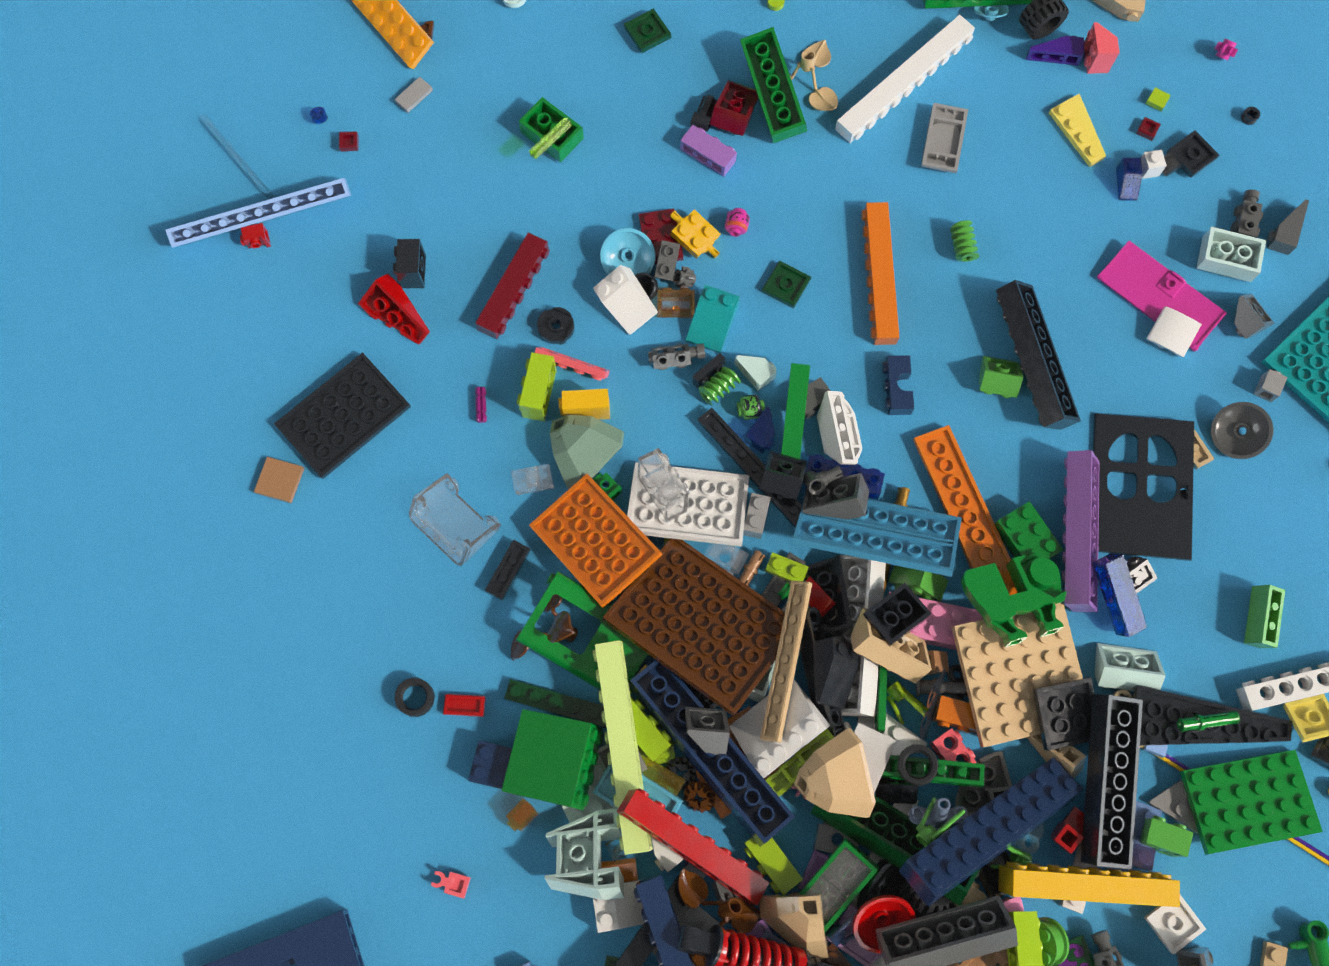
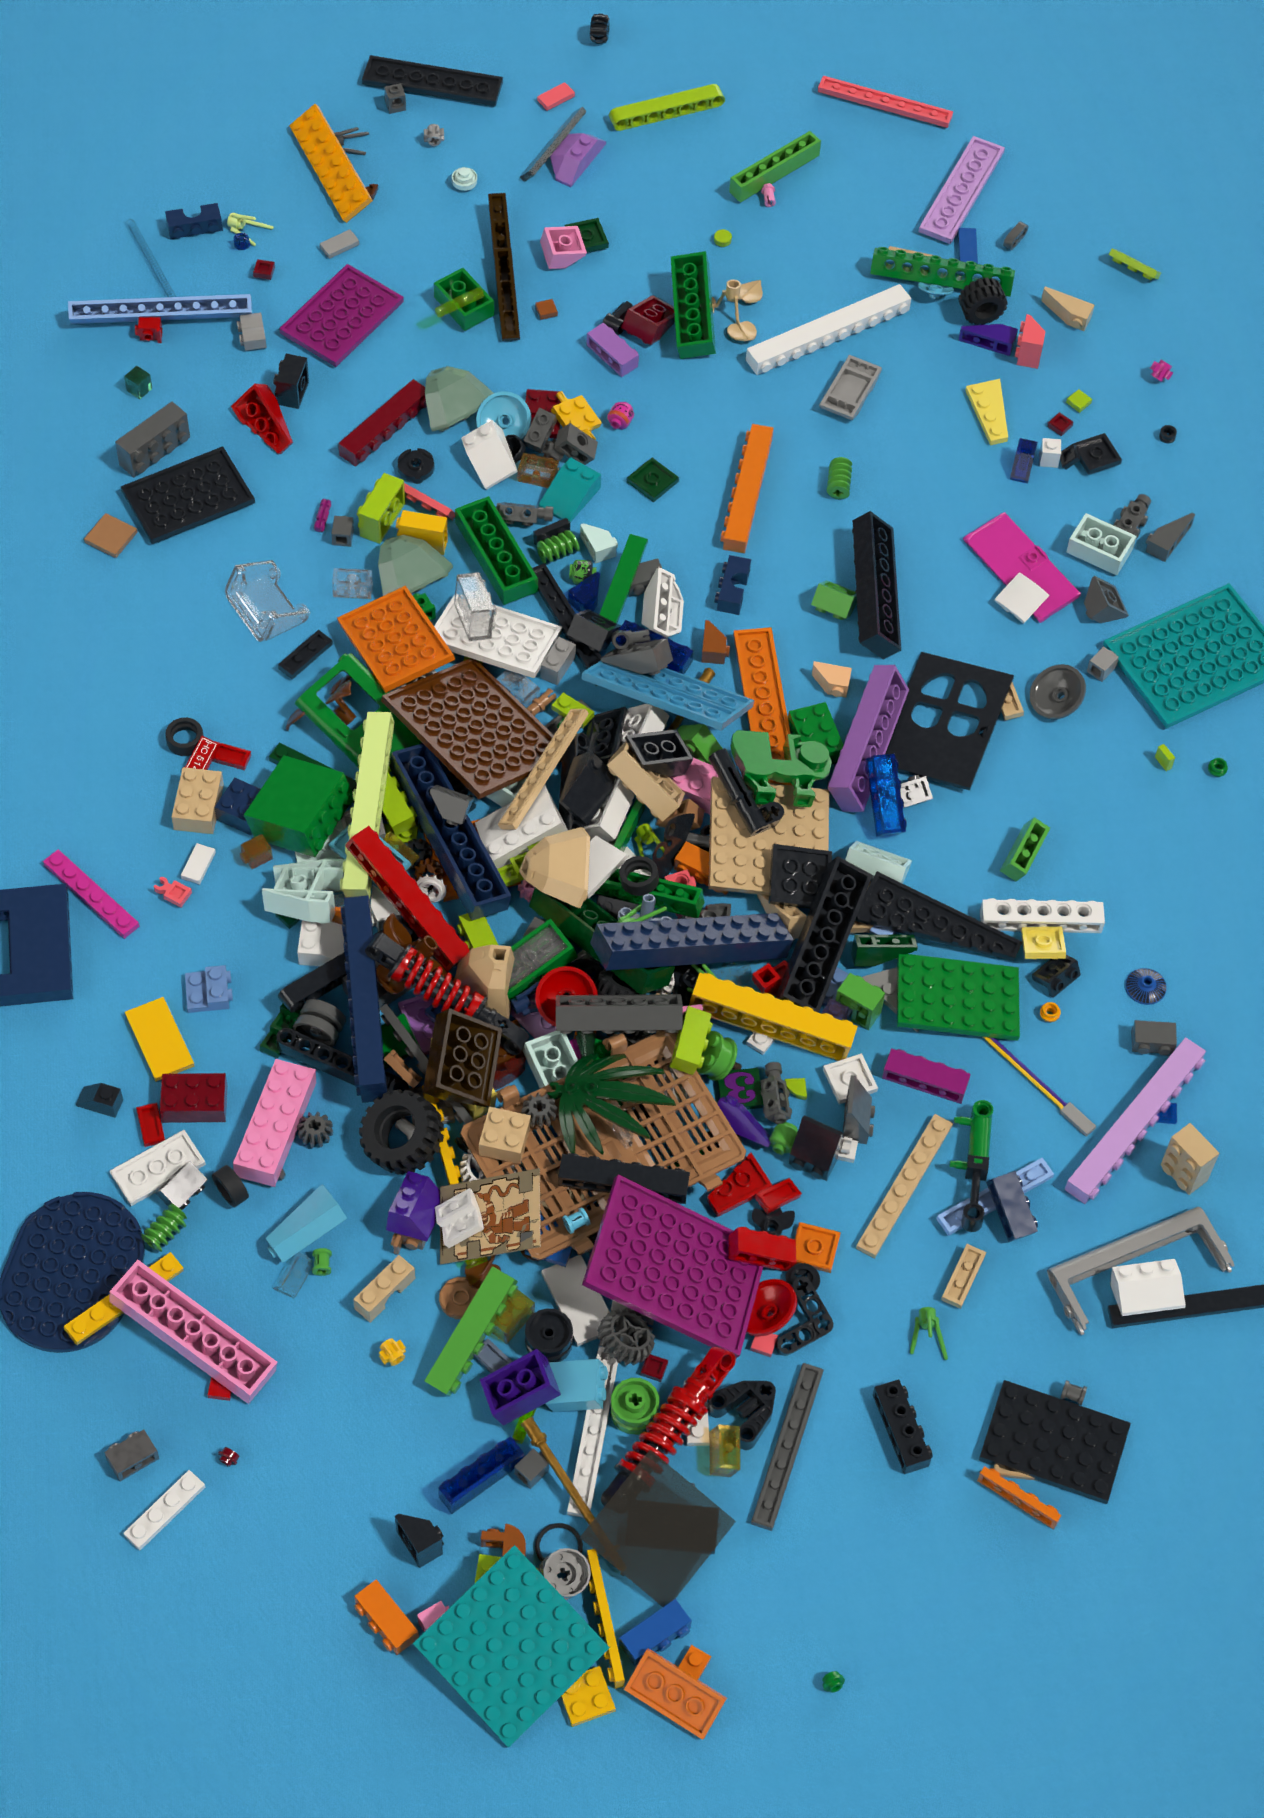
camera: 10 degrees right, 15 degrees down
(259, 299) = (138, 382): none -> brick
(278, 102) = (182, 226): none -> dark blue arch
(291, 364) = (152, 439): none -> dark grey brick
(310, 94) = (238, 222): none -> yellowish green plant
(356, 214) = (252, 331): none -> light grey brick
(370, 906) = (91, 894): none -> dark pink plate
(437, 174) = (341, 315): none -> magenta plate
(438, 718) = (203, 754): none -> red tile
(447, 771) = (195, 800): none -> tan brick
(467, 841) = (198, 863): none -> white tile
(505, 419) = (342, 531): none -> dark grey brick
(572, 242) = (452, 396): none -> sand green brick
(579, 84) = (503, 267): none -> dark brown slope
(629, 48) = (562, 246): none -> bright pink slope
(631, 119) = (546, 309): none -> dark orange tile
(662, 405) = (496, 550): none -> green brick
(706, 267) = (576, 444): none -> dark grey brick
(707, 815) = (438, 891): none -> white gear
(819, 598) = (594, 734): red tile -> none
(899, 457) = (714, 645): none -> dark orange slope
(993, 646) = (742, 797): none -> black piece
(1024, 467) = (832, 678): none -> light nougat slope
(1125, 945) = (797, 1087): none -> lime tile
(1166, 767) = (878, 949): none -> dark green slope
(1200, 722) = (926, 912): green pin -> none
(1247, 900) = (926, 1075): none -> magenta brick

